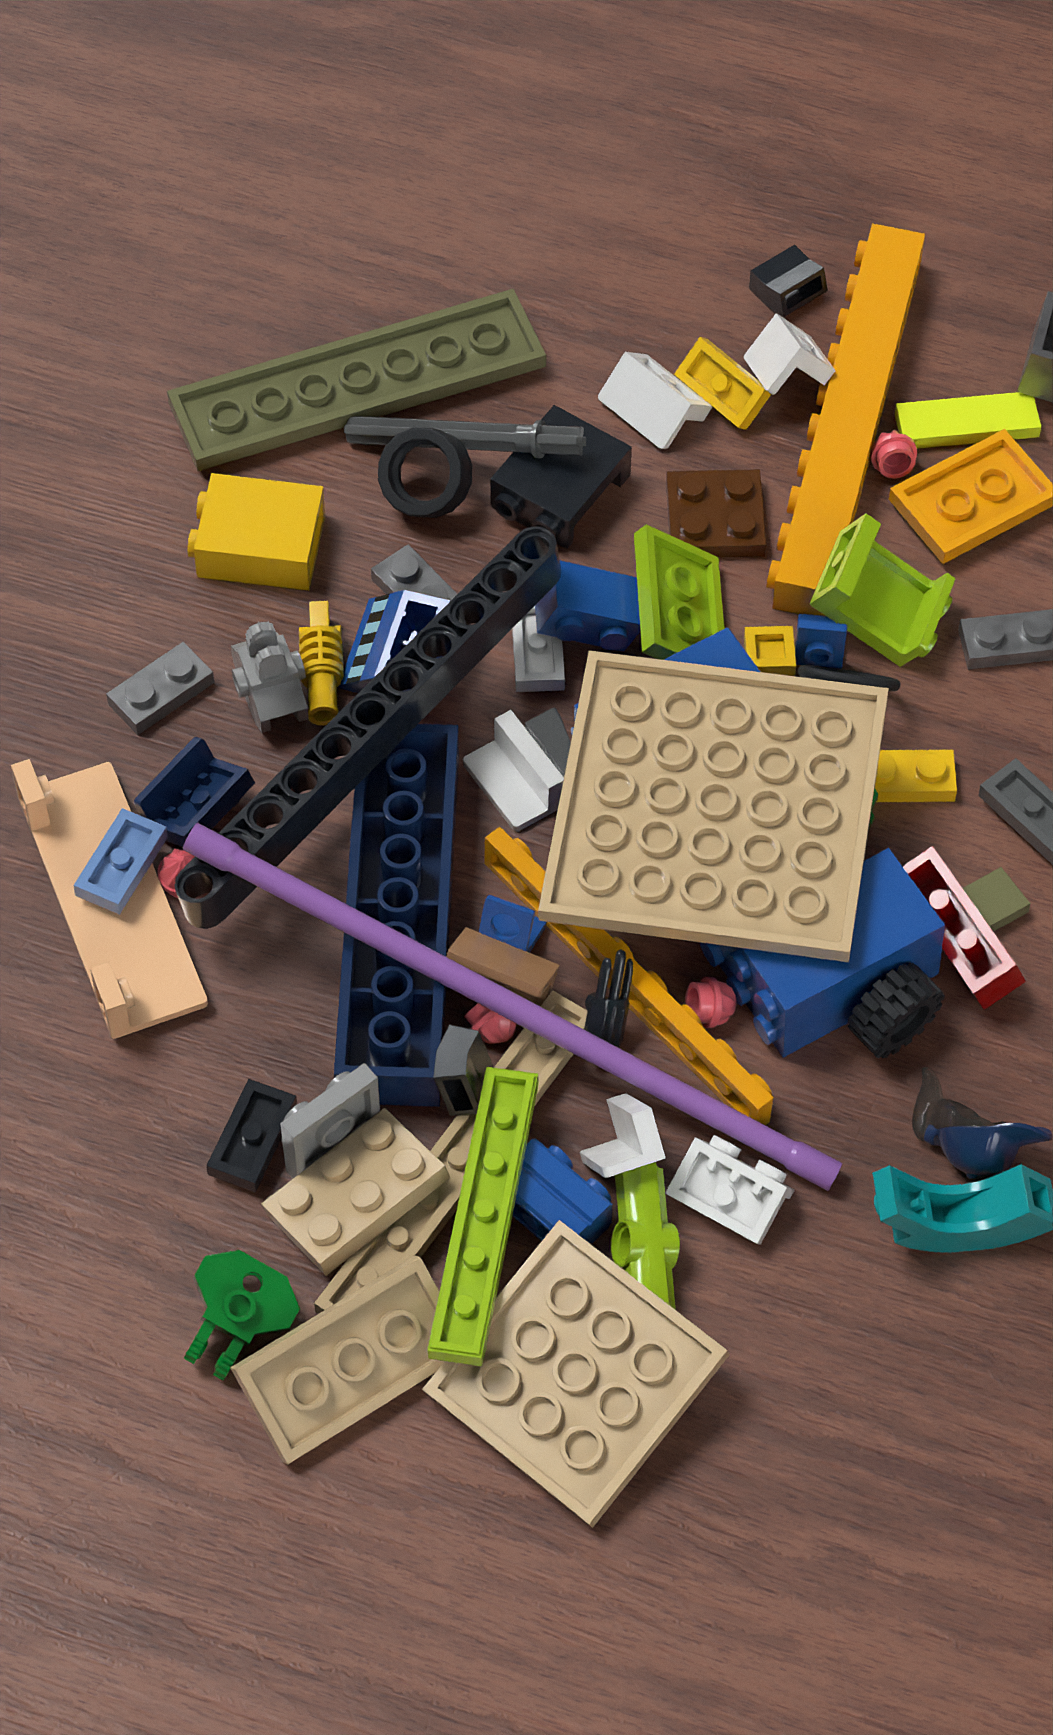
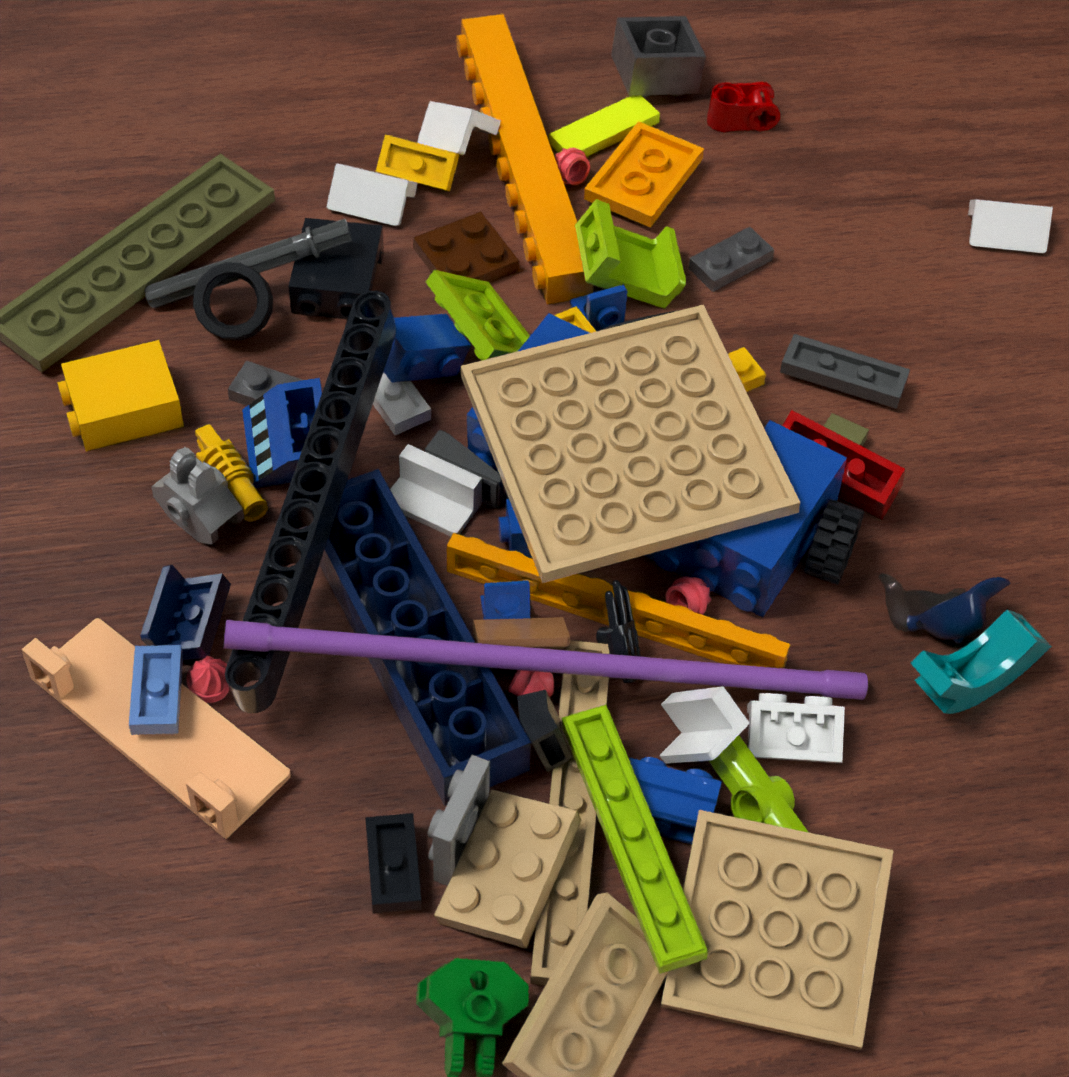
camera: 30 degrees left, 5 degrees down
(160, 688) = (105, 545): flat silver plate -> none
(788, 281) = (419, 81): black piece -> none

